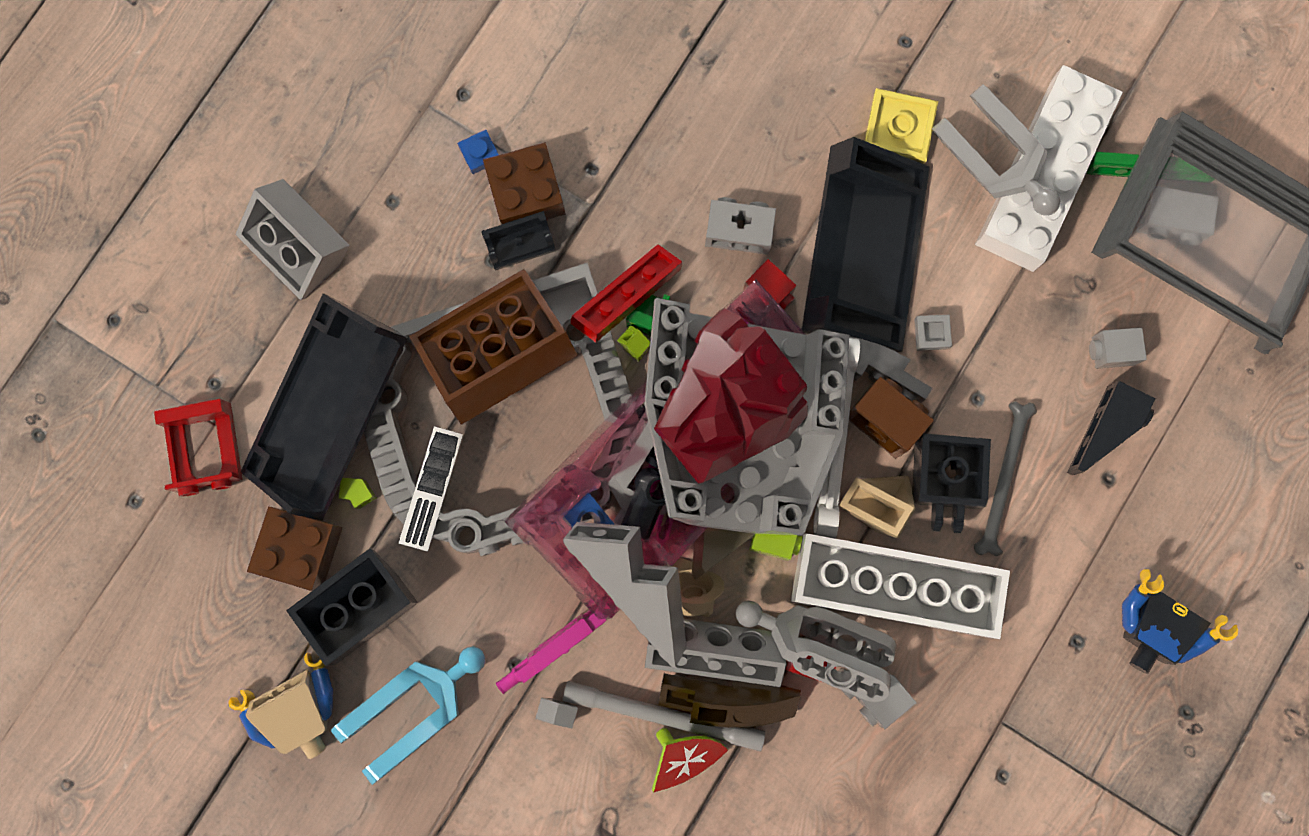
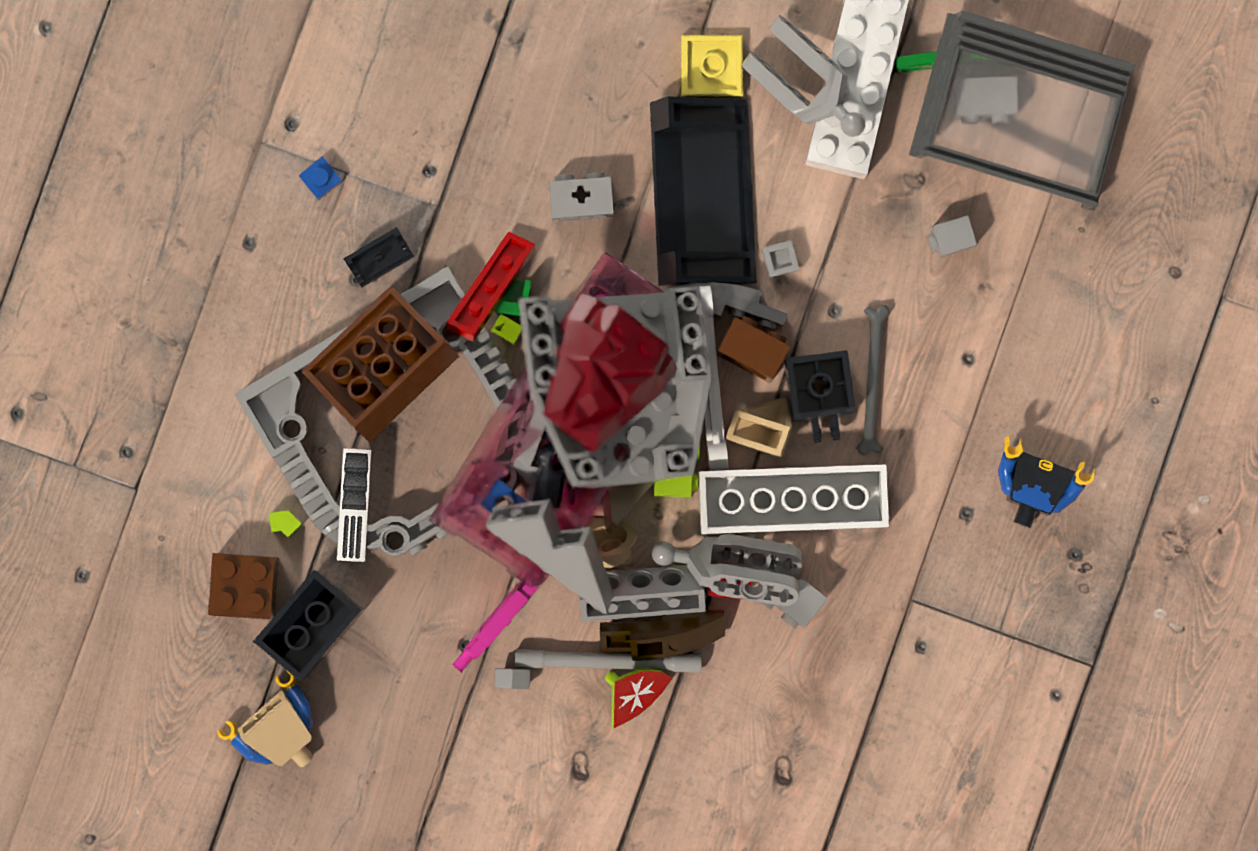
camera: 15 degrees left, 5 degrees up
(174, 426) = (121, 544): red panel -> none
(291, 238) = (166, 301): light grey slope -> none
(322, 408) = (238, 453): black slope -> none
(441, 687) = (403, 678): medium azure piece -> none
(524, 184) = (371, 204): reddish brown brick -> none
(775, 283) = (623, 248): red brick -> none
(1116, 419) = (963, 303): black slope -> none

